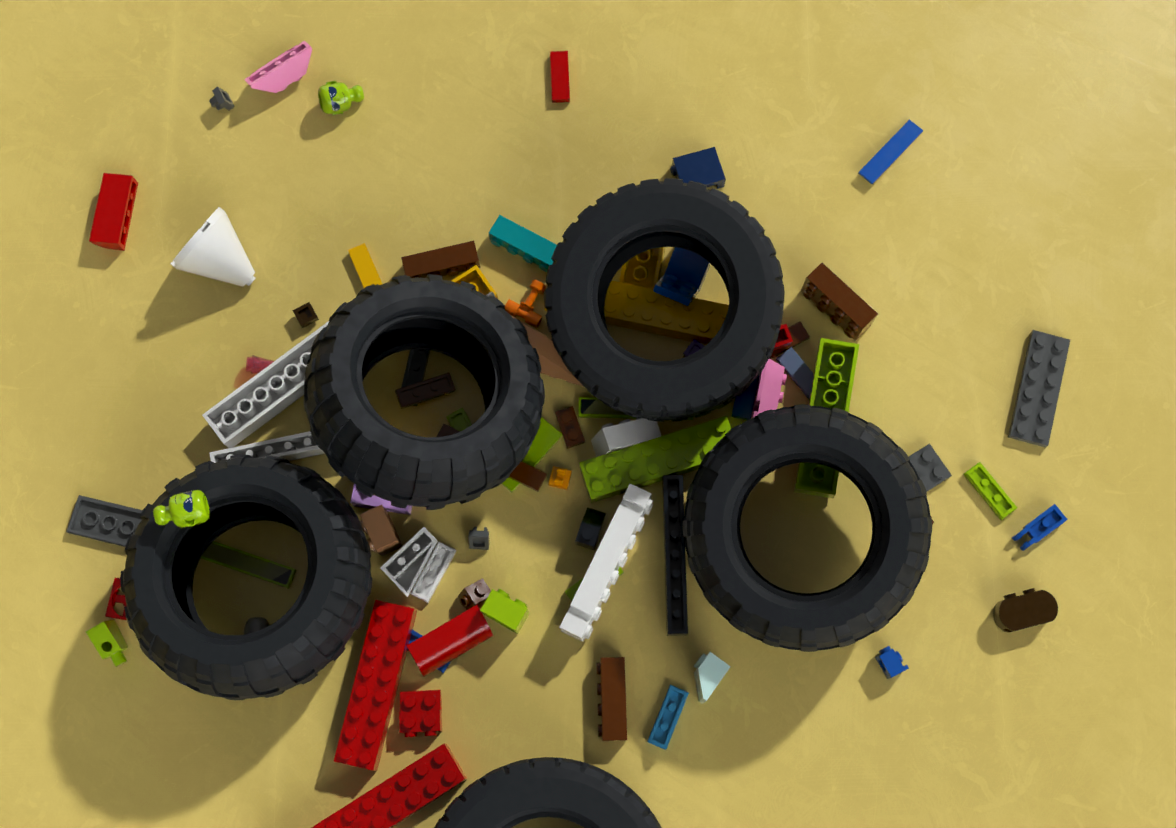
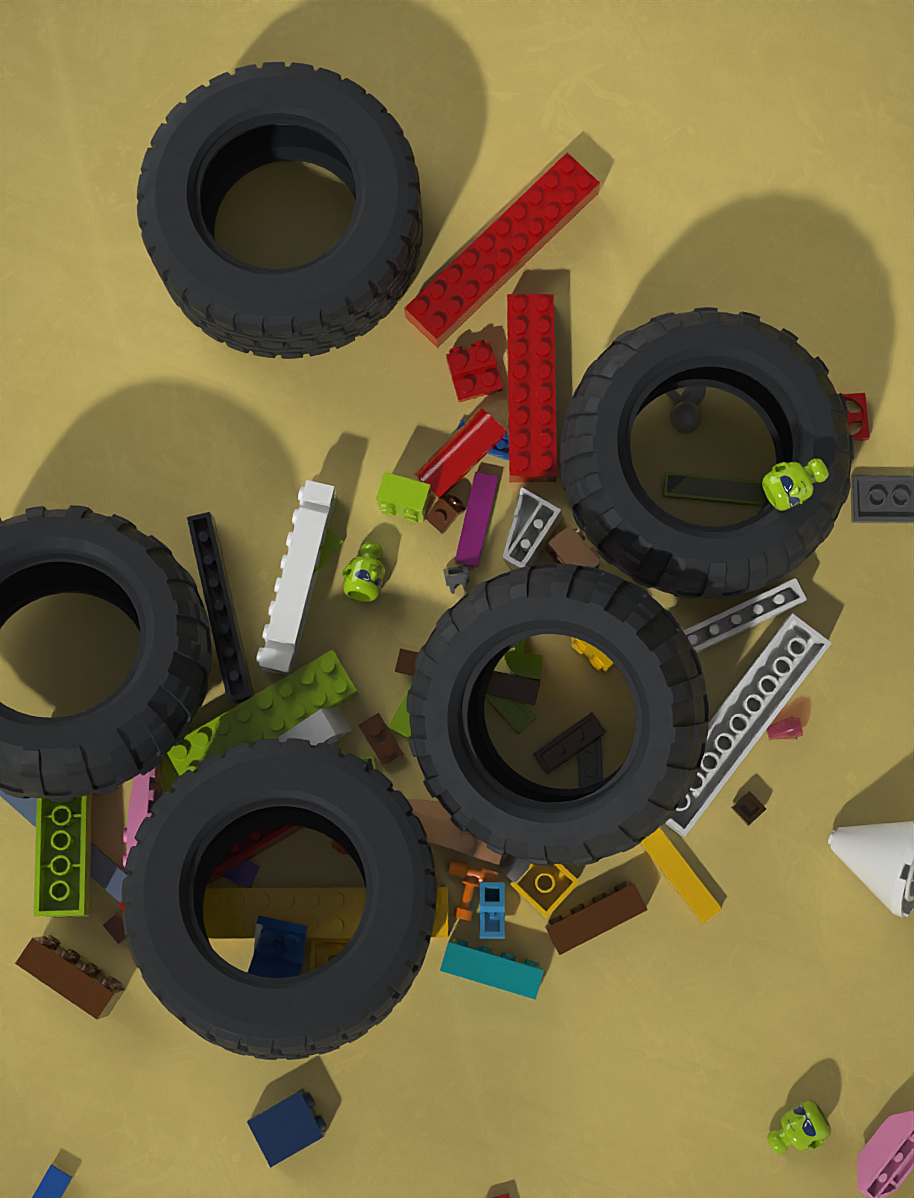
camera: 170 degrees right, 5 degrees up
(103, 636) = (849, 364): lime torso -> none
(433, 572) = (500, 528): white tile -> none
(451, 584) = (476, 519): none -> magenta tile
(515, 284) = (492, 910): none -> dark azure brick
(552, 556) = (364, 574): none -> lime piece
(560, 478) = (378, 673): light orange tile -> none
(590, 528) = (327, 619): black slope -> none
(613, 699) = (260, 433): reddish brown brick -> none
(668, 717) = (196, 430): dark azure tile -> none
(708, 675) = (152, 474): light aqua slope -> none

